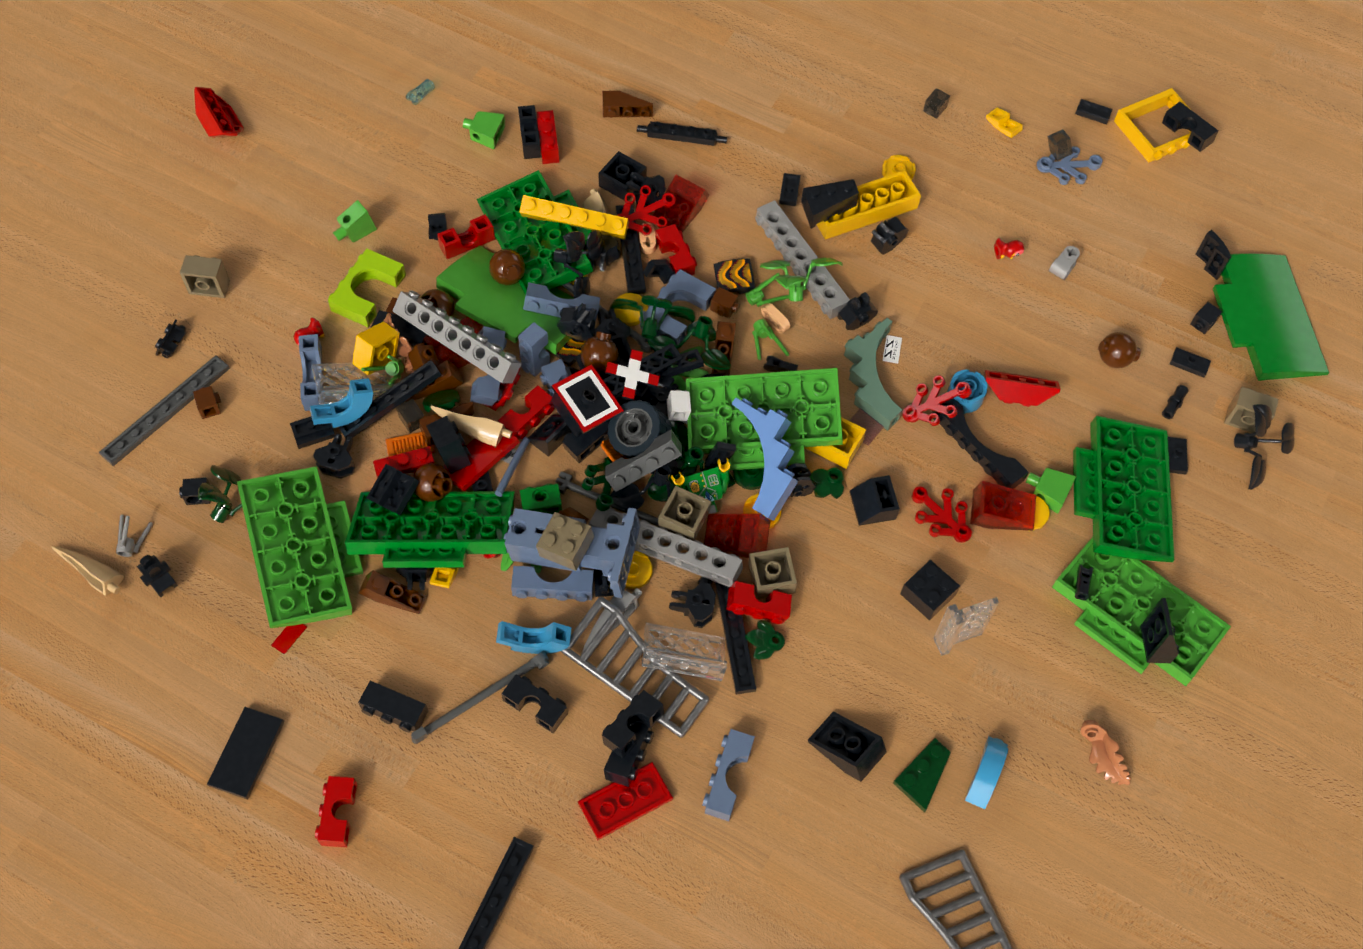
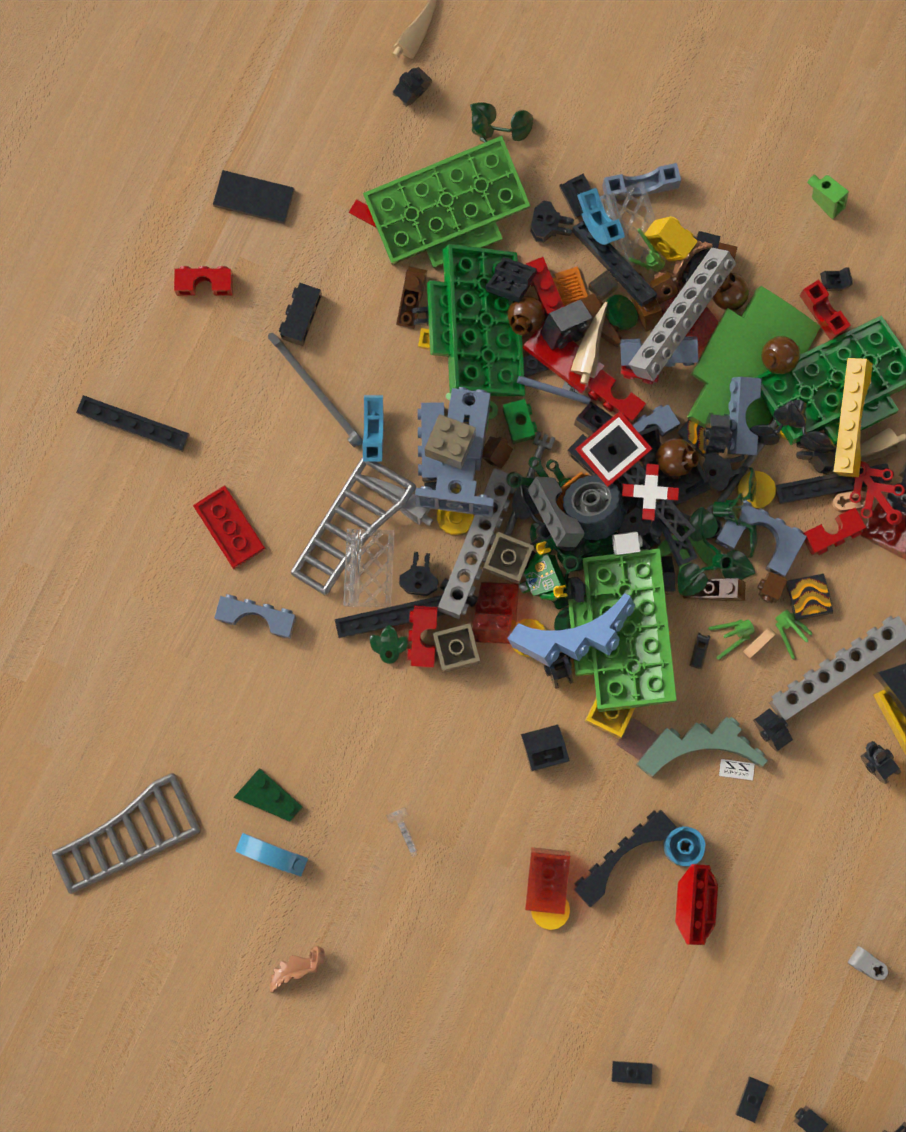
camera: 90 degrees right, 20 degrees up
(126, 545) = (441, 53): light grey plant -> none
(163, 411) = (591, 56): dark grey tile -> none
(172, 333) = (677, 44): black hinge -> none
(189, 491) = (502, 102): black brick -> none
(205, 276) = (743, 60): dark tan brick -> none
(207, 402) = (600, 92): reddish brown brick -> none
(313, 328) = (689, 173): red animal -> none
(368, 267) = (778, 217): lime arch -> none
(521, 691) = (305, 452): black arch -> none
(531, 347) = (682, 393): sand blue arch -> none
(626, 769) = (270, 525): black brick -> none
(643, 710) = (278, 512): black arch -> none
(659, 268) = (809, 517): black bracket -> none
(793, 283) = (793, 660): bright green plant -> none
(825, 484) = (563, 700): dark green plate -> none
(848, 745) = (289, 724): black slope -> none
(930, 589) = (452, 803): black brick -> none
(933, 402) = (663, 808): red plant -> none
(943, 516) = (536, 820): red plant -> none
(1009, 249) = (880, 903): red animal -> none
(1052, 487) = (578, 932): bright green torso -> none
(1083, 583) = (464, 956): black bar -> none
(1118, 350) = (754, 1017): reddish brown brick -> none
(1122, 598) = (448, 1015): bright green slope -> none
(1126, 490) = (583, 1012): green slope -> none
(1159, 635) = (409, 1028): black slope -> none
(1175, 402) = (697, 1076): black pin -> none

